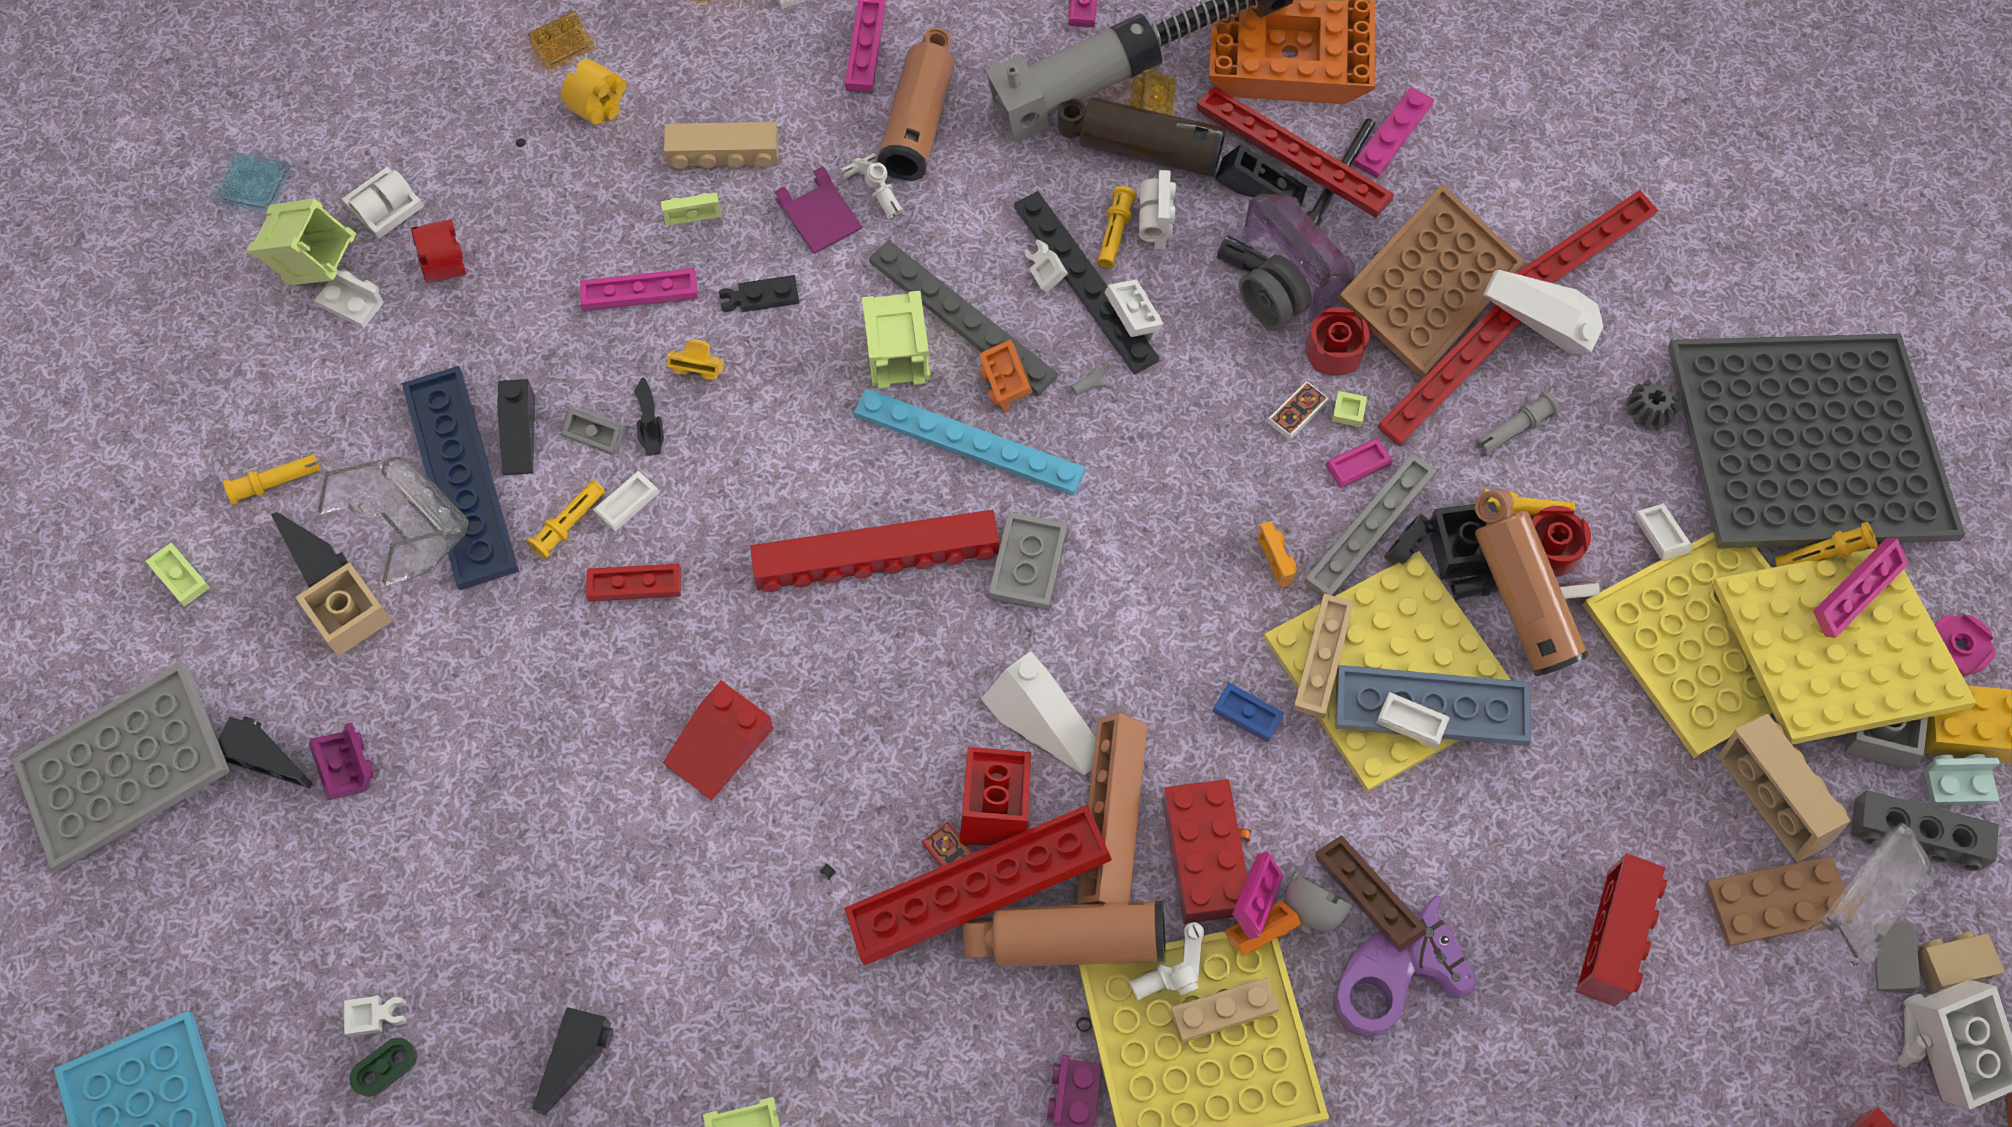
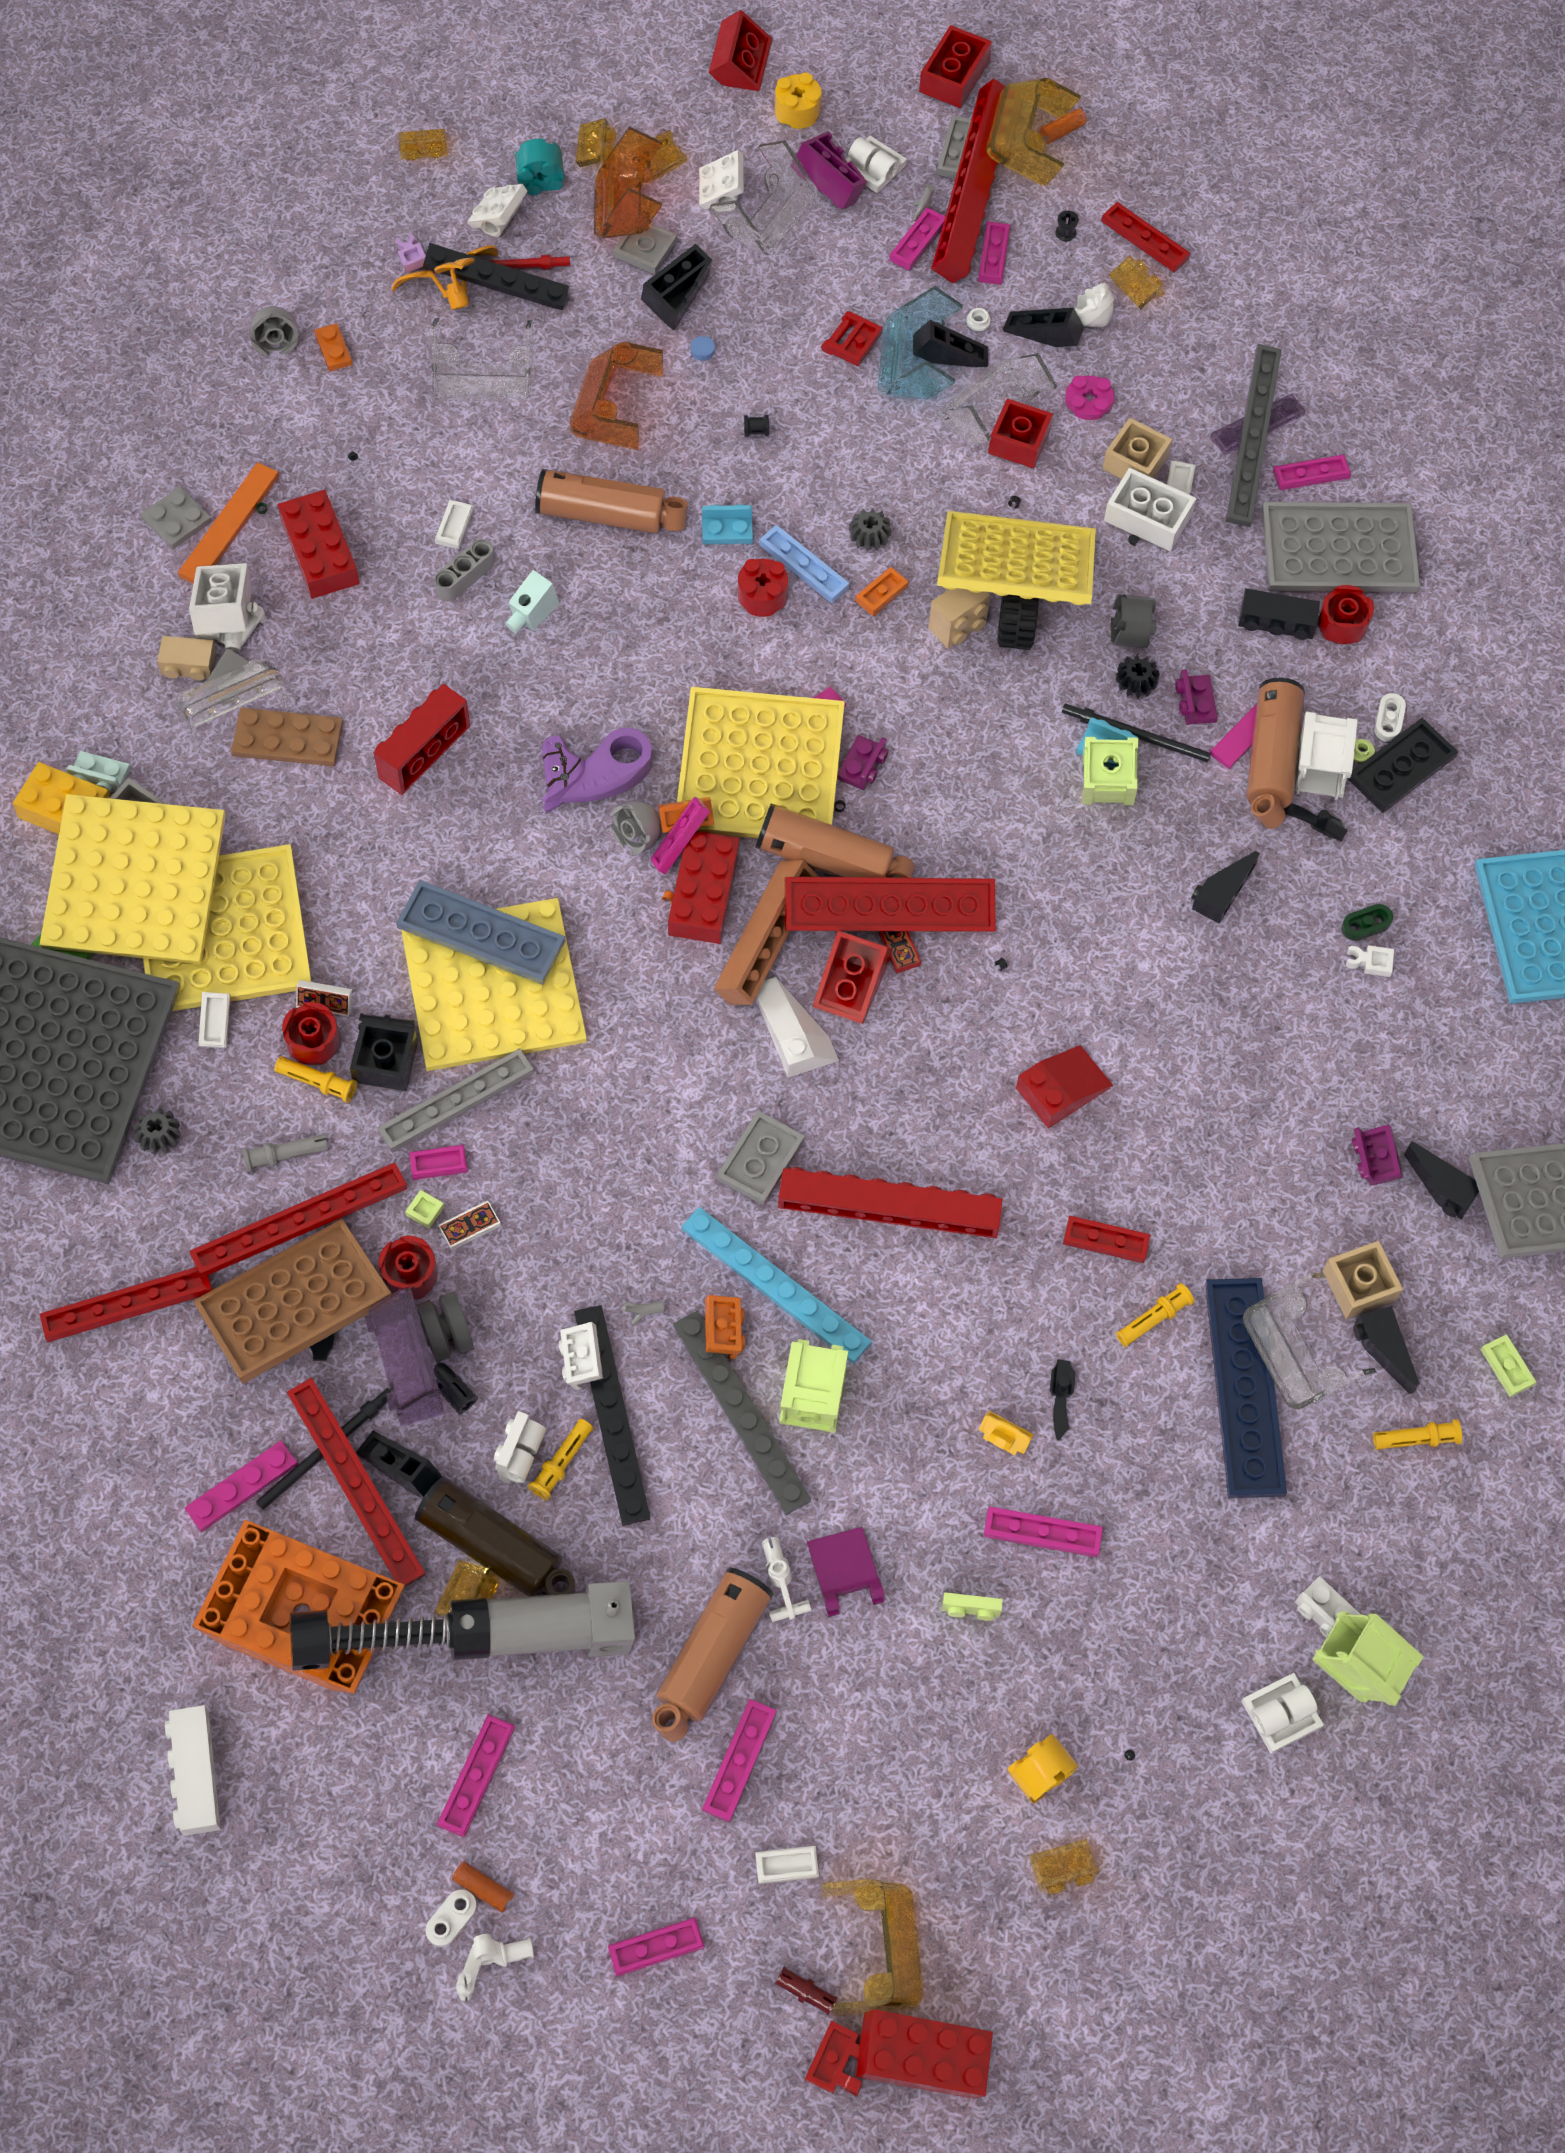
camera: 165 degrees left, 0 degrees up
(253, 182) = (1414, 1785): clear light blue plate -> none
(438, 251) = (1234, 1622): red brick -> none
(516, 426) = (1185, 1419): black slope -> none
(594, 429) = (1112, 1401): light grey slope -> none
(626, 501) = (1097, 1320): white tile -> none
(721, 144) = (923, 1673): tan brick -> none
(761, 294) = (924, 1494): black plate -> none
(1047, 267) = (645, 1433): white plate -> none
(1180, 977) = (760, 800): white pin -> none
(1224, 1010) = (736, 772): tan plate -> none
(1248, 712) = (626, 981): blue plate -> none
(1273, 547) = (546, 1086): light orange plate -> none
(1323, 656) = (549, 995): tan plate -> none
(1370, 893) = (594, 817): reddish brown plate -> none
(1413, 720) = (505, 918): white tile -> none
(1415, 531) = (431, 1077): black plate -> none
(1528, 586) = (362, 984): nougat piece -> none
(1549, 309) = (199, 1223): white wedge -> none
(1783, 787) = (244, 792): tan brick -> none
(1841, 542) = (86, 947): yellow pin -> none
(1861, 587) = (104, 898): dark pink plate -> none
(1976, 836) = (117, 730): dark grey brick -> none
(1977, 639) = (15, 861): dark pink plate -> none

